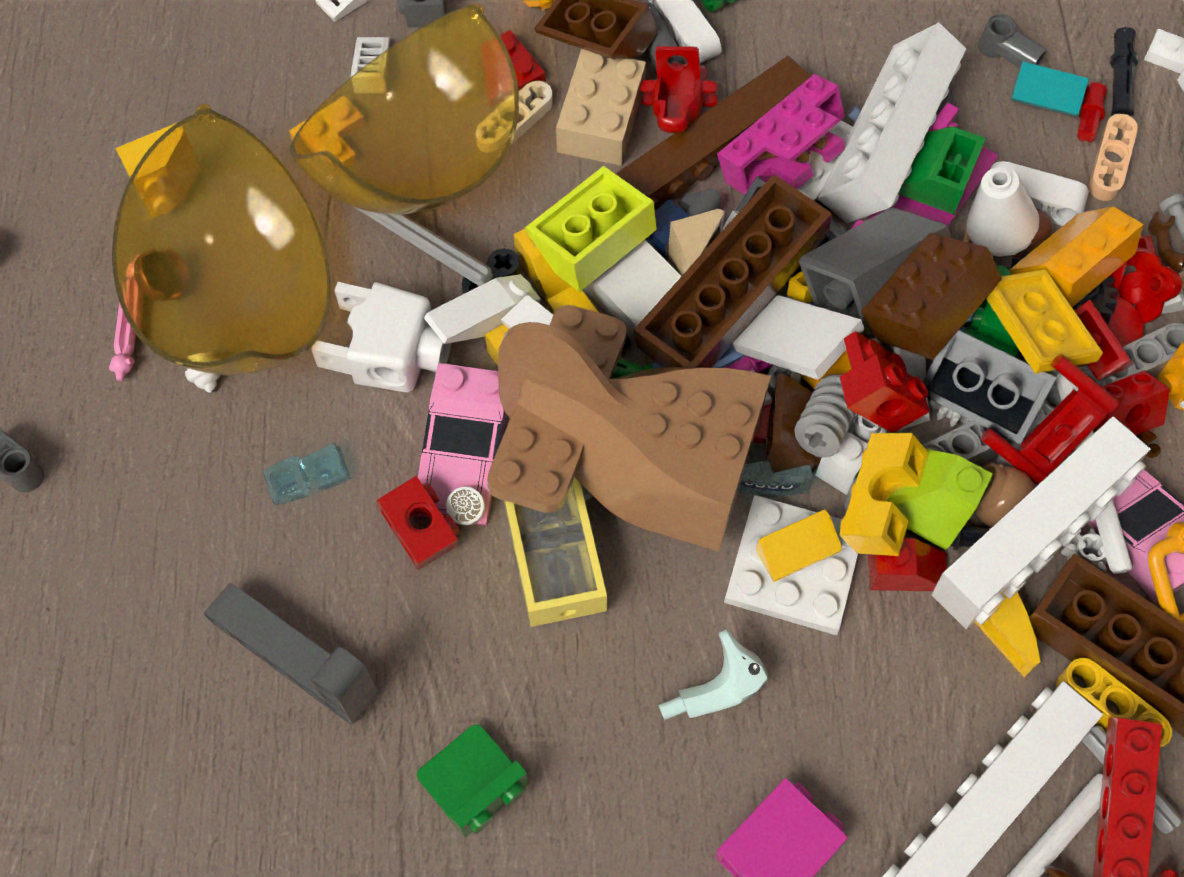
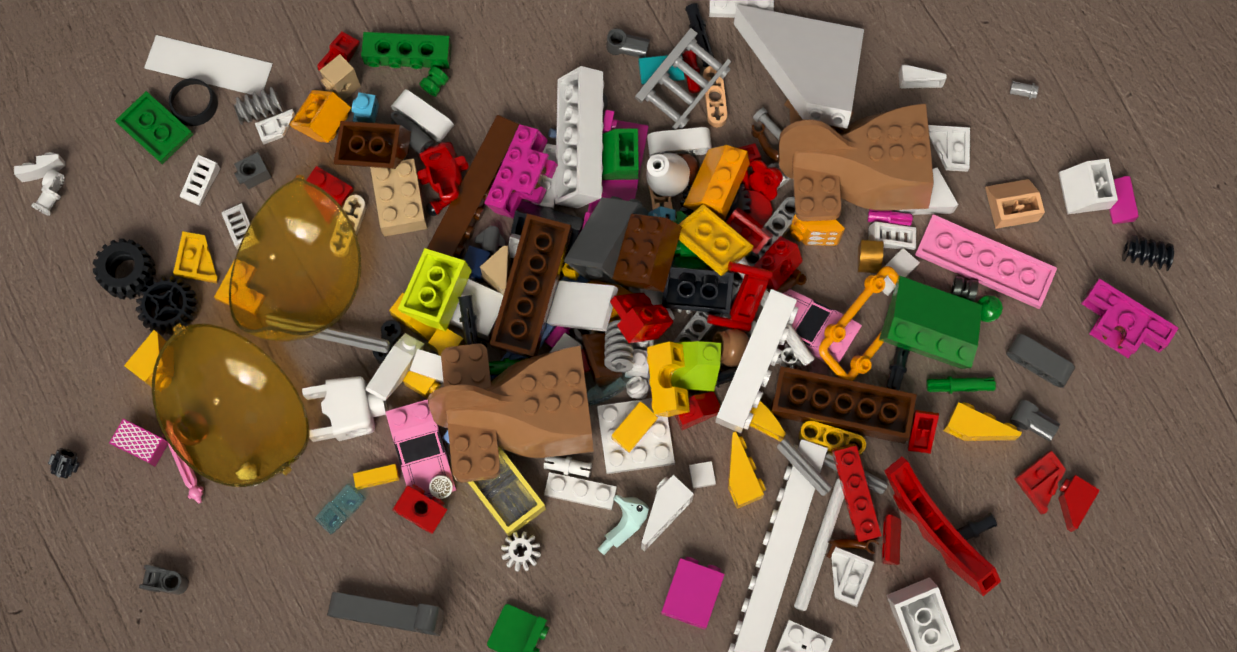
camera: 25 degrees left, 10 degrees up
(83, 265) = (139, 442): none -> dark pink panel
(187, 30) = (116, 254): none -> black tyre
(230, 98) = (173, 288): none -> black gear
(290, 76) = (194, 259): none -> yellow wing
(380, 452) = (376, 476): none -> yellow piece
(550, 661) = (513, 548): none -> white gear
(627, 266) = (466, 303): none -> black pin
(644, 141) = (434, 207): none -> red piece
(670, 561) = (568, 466): none -> white pin
(671, 608) = (580, 491): none -> white plate
(803, 685) = (669, 503): none -> white slope
(829, 495) = (637, 387): none -> white plate
(875, 669) = (702, 475): none -> white tile
(938, 707) = (742, 480): none -> yellow slope
(1053, 726) = (804, 467): none -> light grey axle
(1077, 76) = (676, 60): none -> light grey fence

